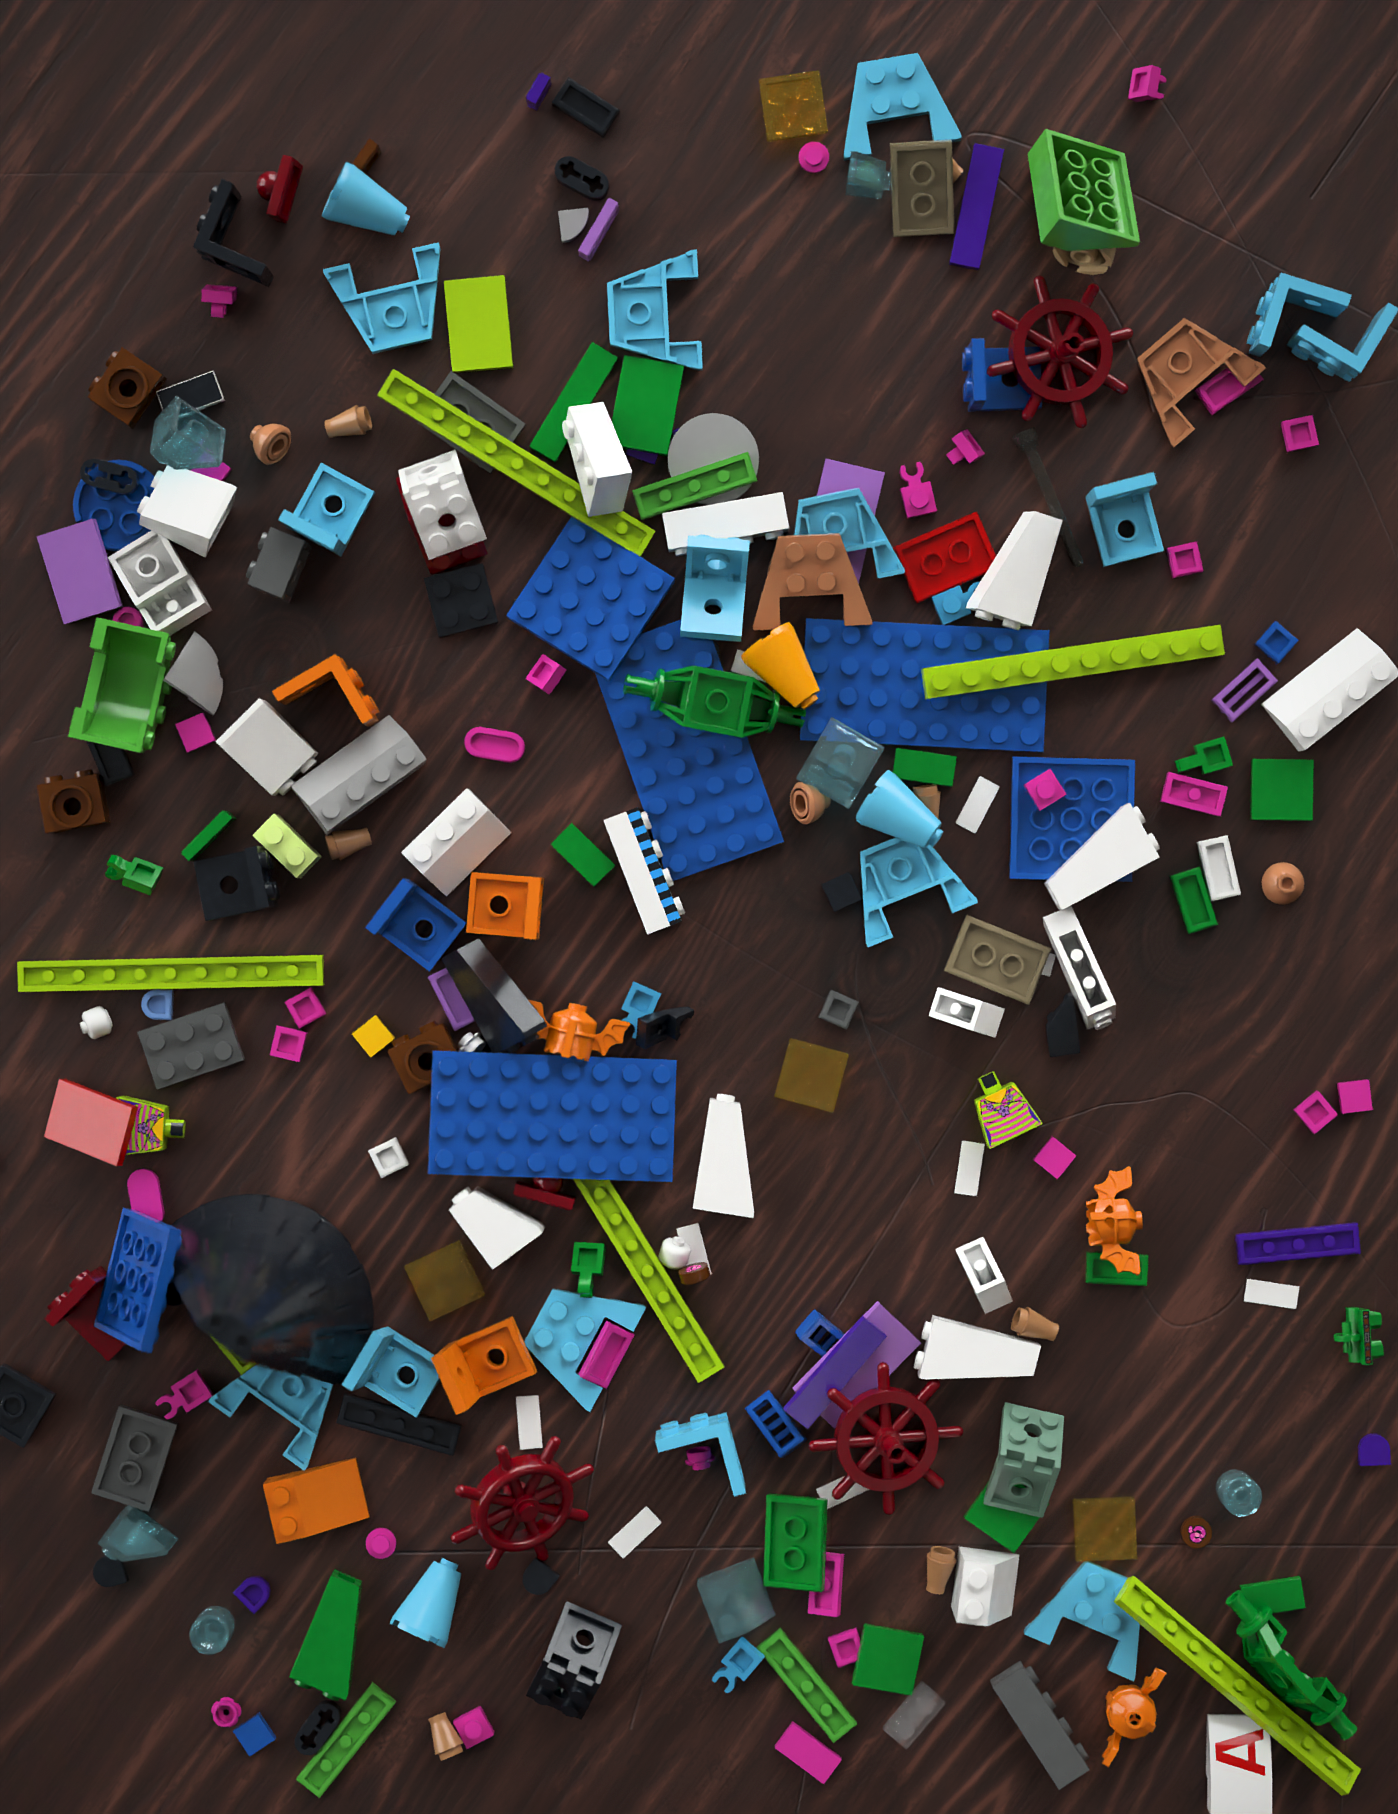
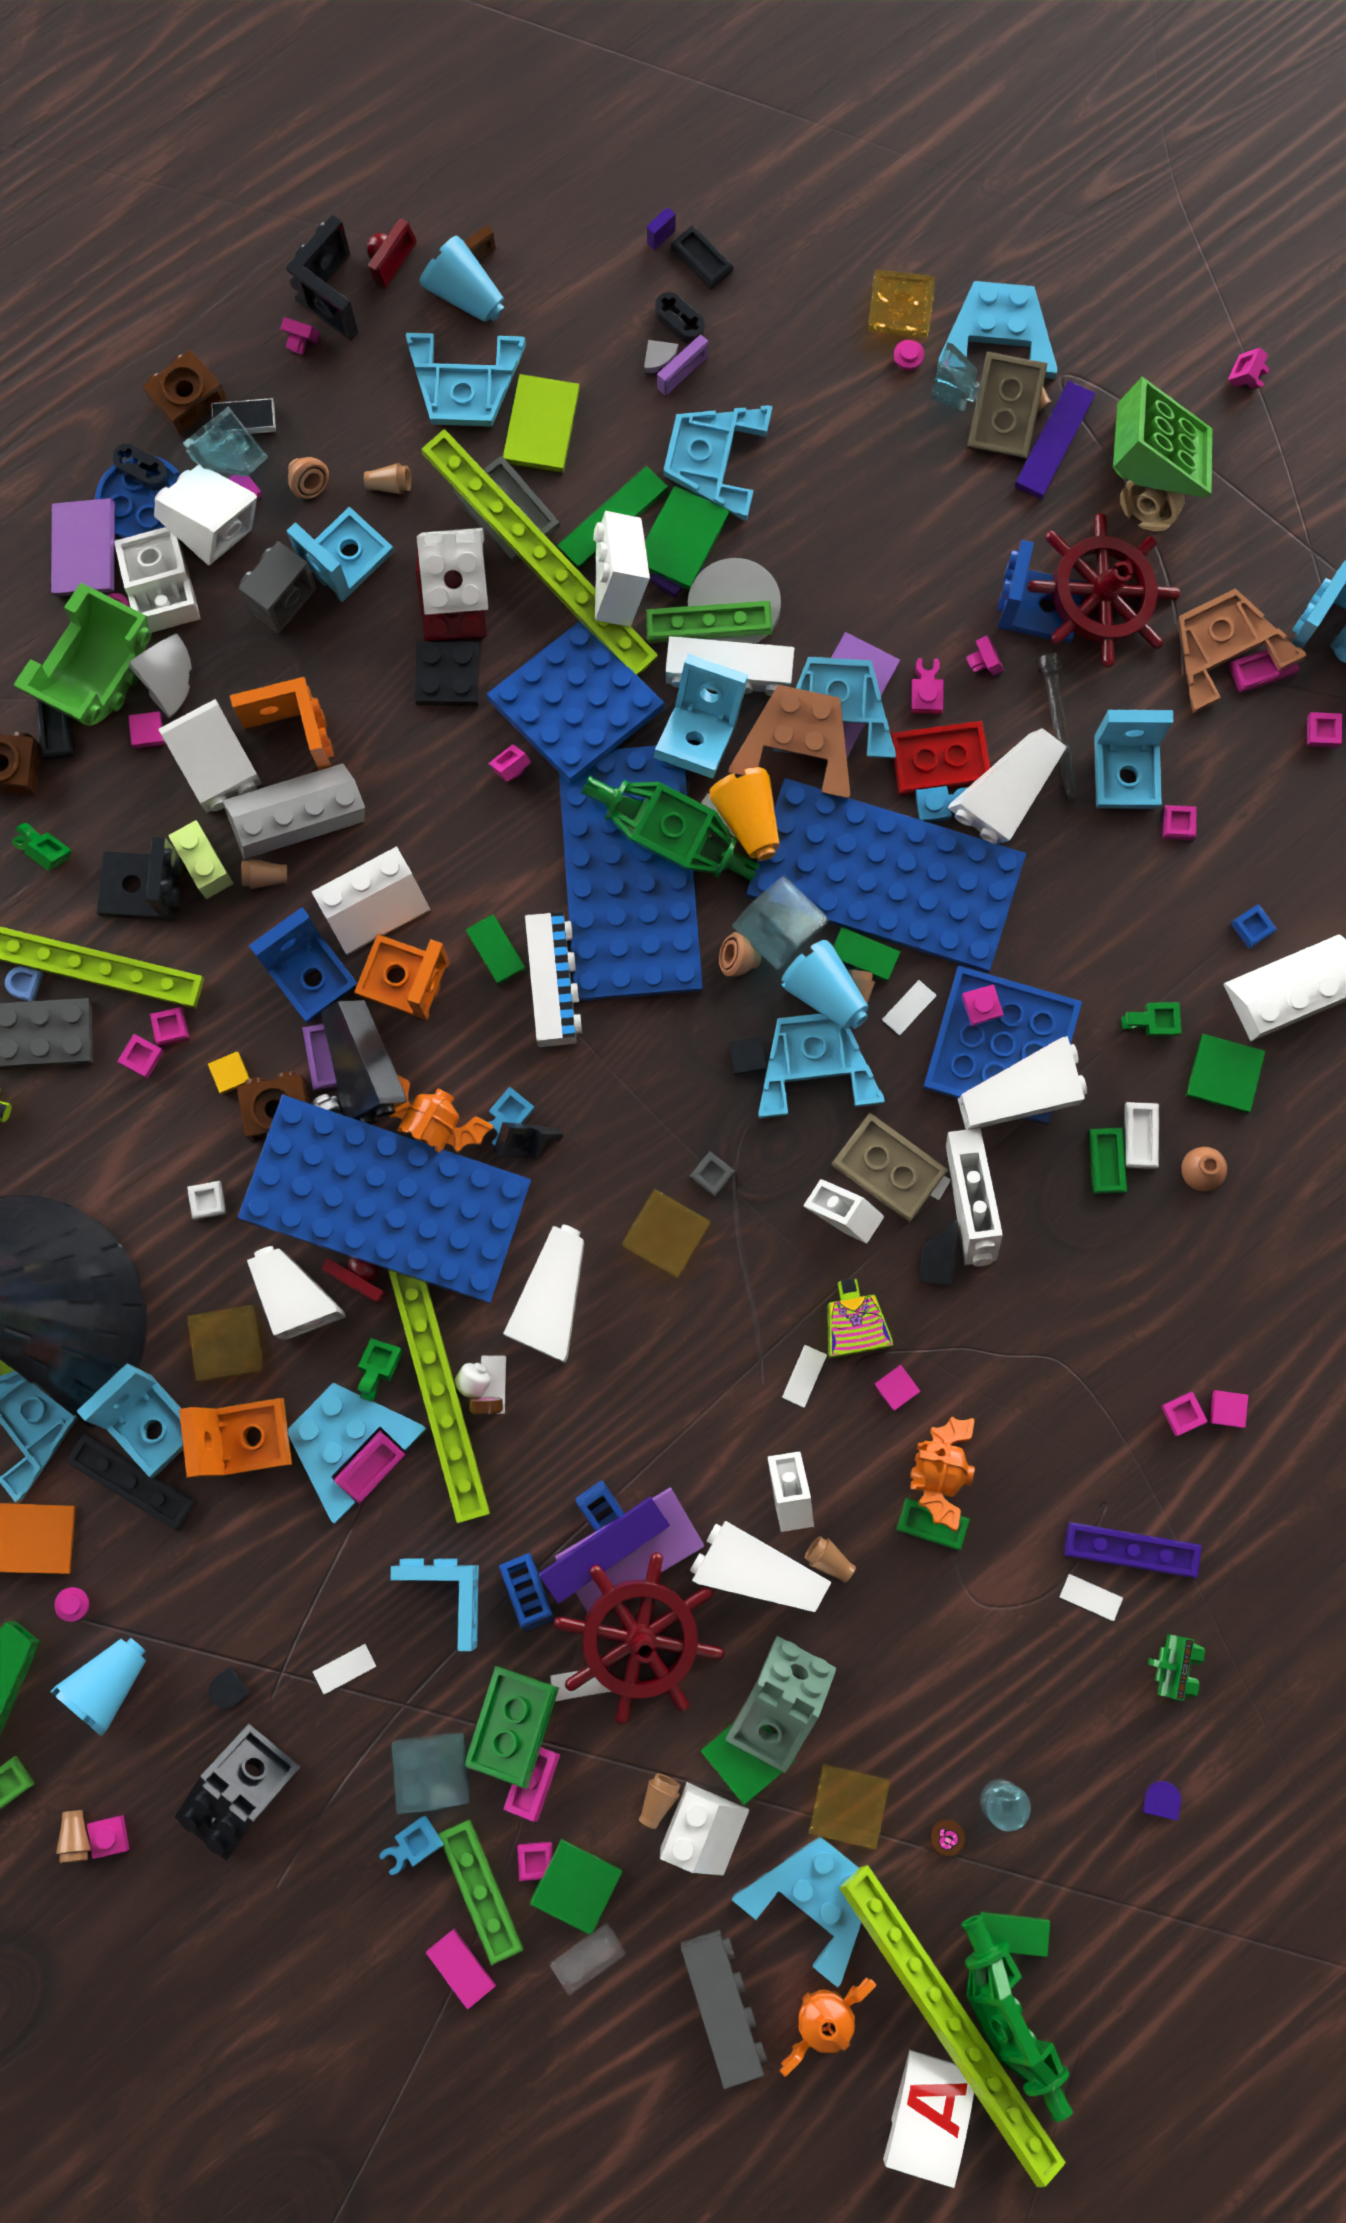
camera: 15 degrees right, 10 degrees down
(208, 835) = (126, 829): green tile -> none
(494, 744) = (439, 819): dark pink tile -> none
(522, 1503) = (230, 1597): dark red piece -> none
(529, 1422) = (268, 1518): white sticker -> none
(699, 1457) = (435, 1605): dark pink plate -> none
(1072, 661) = (1042, 887): lime plate -> none
(1194, 794) = (1134, 1053): dark pink plate -> none
(1224, 707) = (1187, 977): medium lavender tile -> none

